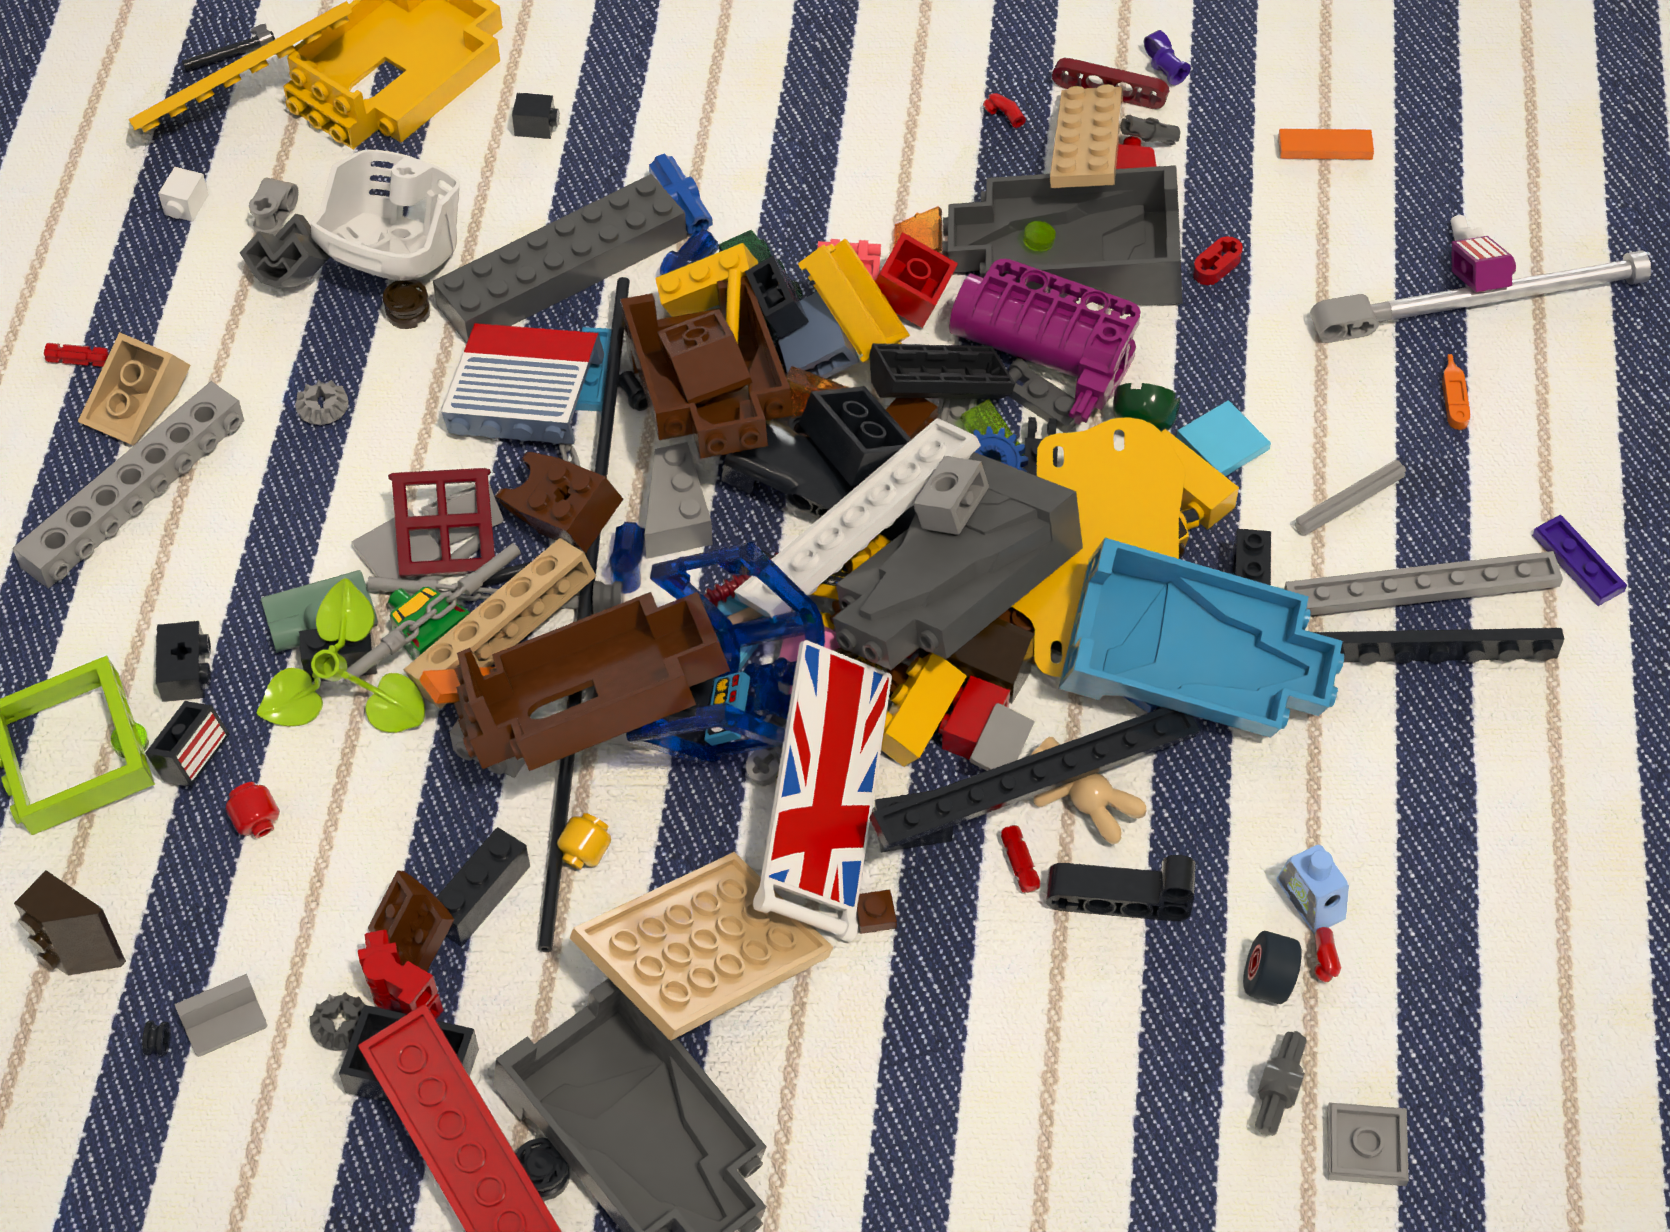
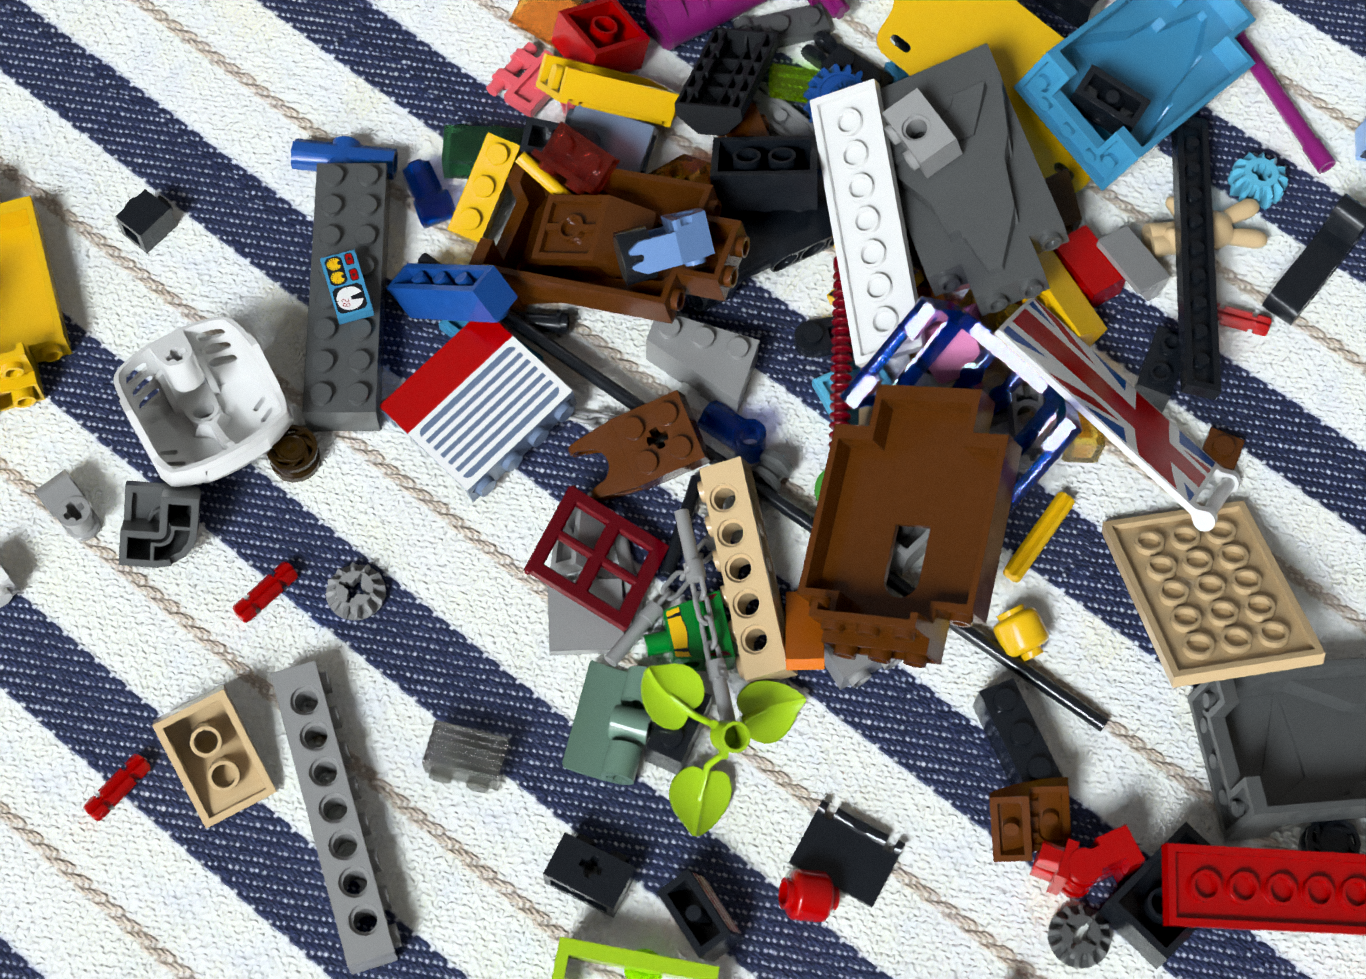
camera: 60 degrees left, 10 degrees up
(228, 534) = (466, 756): none -> clear smoke brick
(284, 351) = (265, 592): none -> red axle
(311, 824) = (848, 852): none -> black piece
(551, 243) = (347, 287): none -> tile
(592, 305) = (452, 292): none -> blue brick
(688, 815) = (1038, 537): none -> yellow axle
(692, 376) = (679, 241): none -> medium blue piece
(753, 302) = (576, 159): none -> clear red bracket
(1126, 630) = (1108, 101): none -> black brick
(1175, 804) = (1258, 180): none -> medium azure gear
(1256, 831) = (1311, 144): none -> magenta piece

